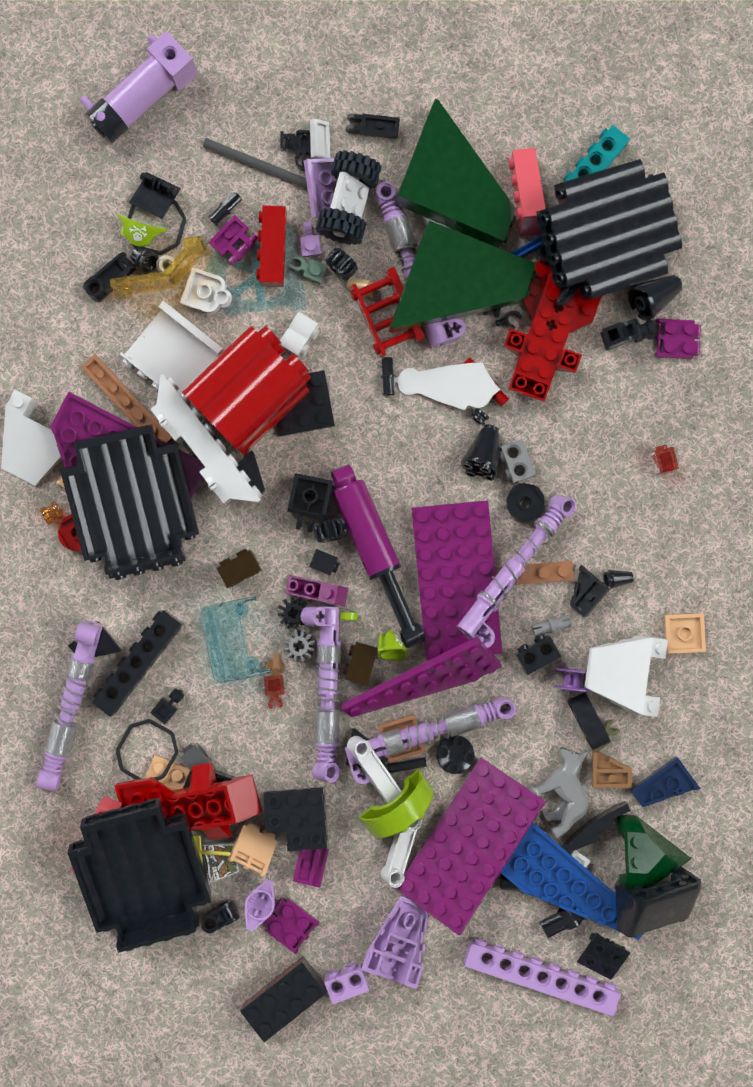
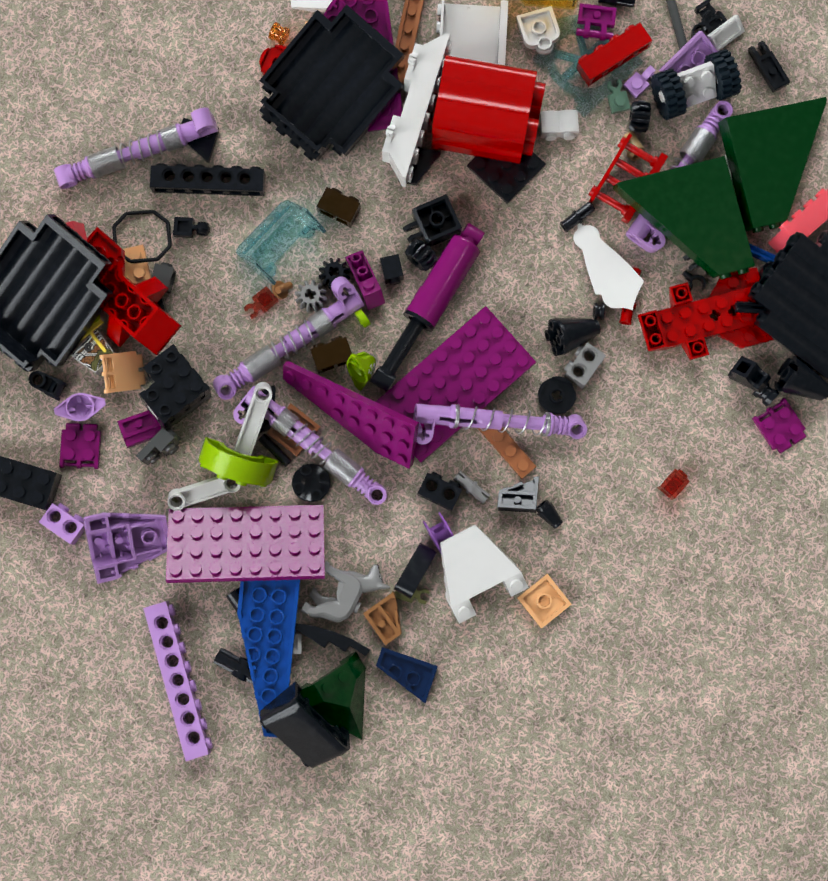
camera: 55 degrees right, 5 degrees down
(340, 855) = (163, 442): none -> dark grey plate
(603, 956) = (229, 720): black hinge -> none

